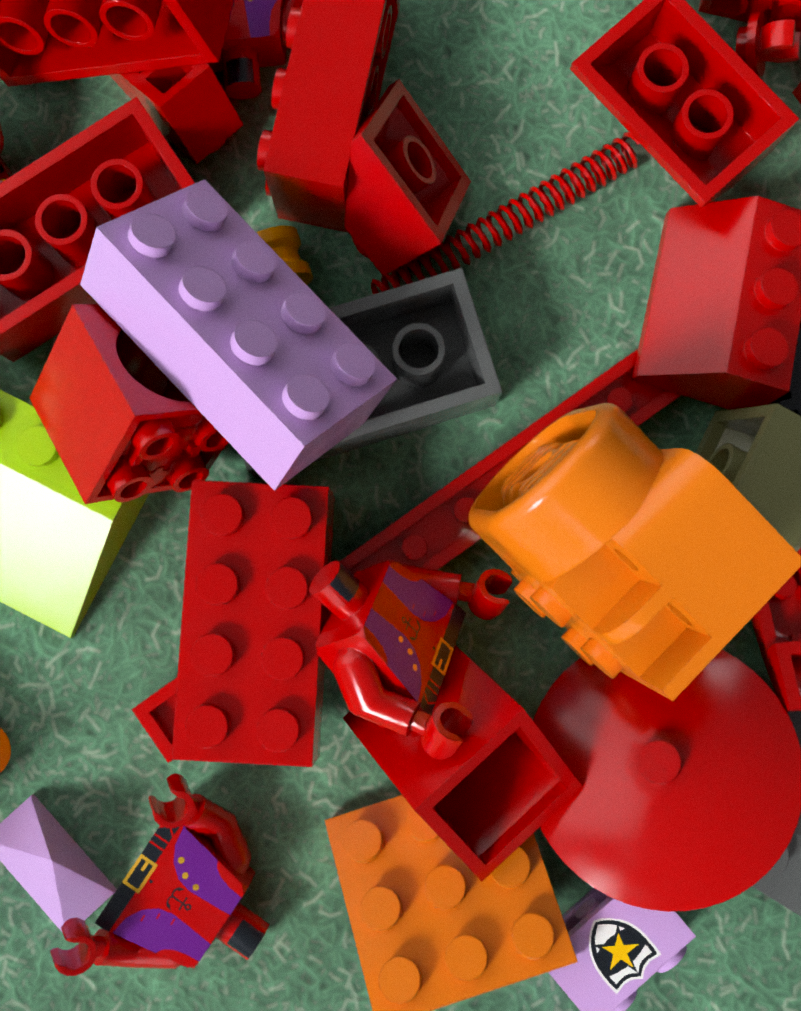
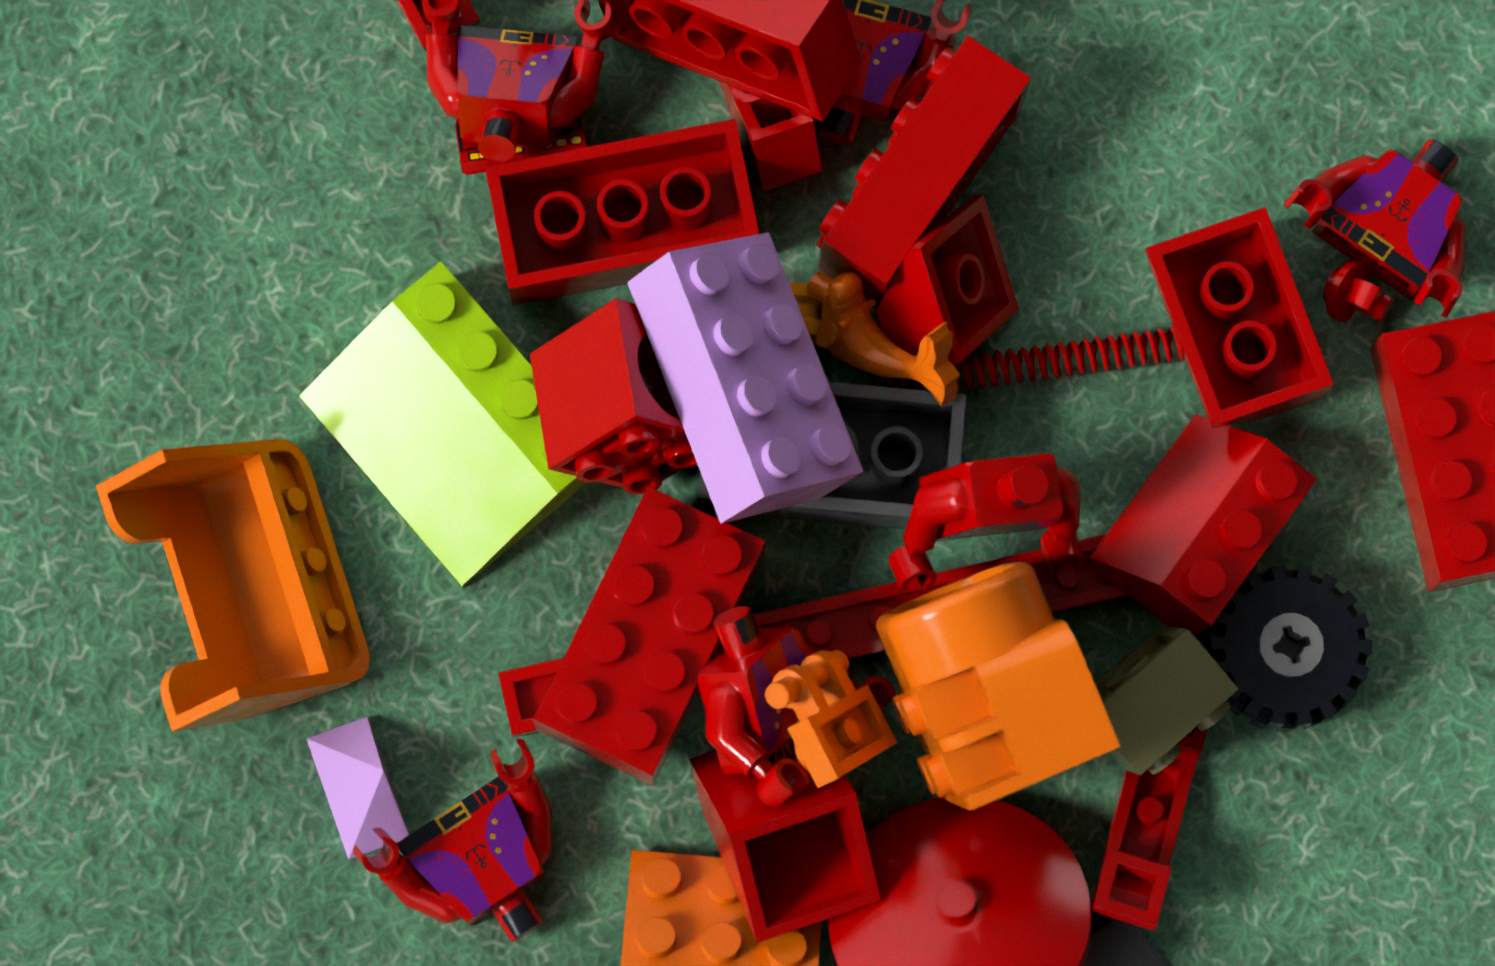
camera: 20 degrees right, 5 degrees down
(341, 263) = (857, 340): none -> orange animal
(474, 657) = (836, 722): none -> orange plate
(527, 357) = (987, 501): none -> red torso

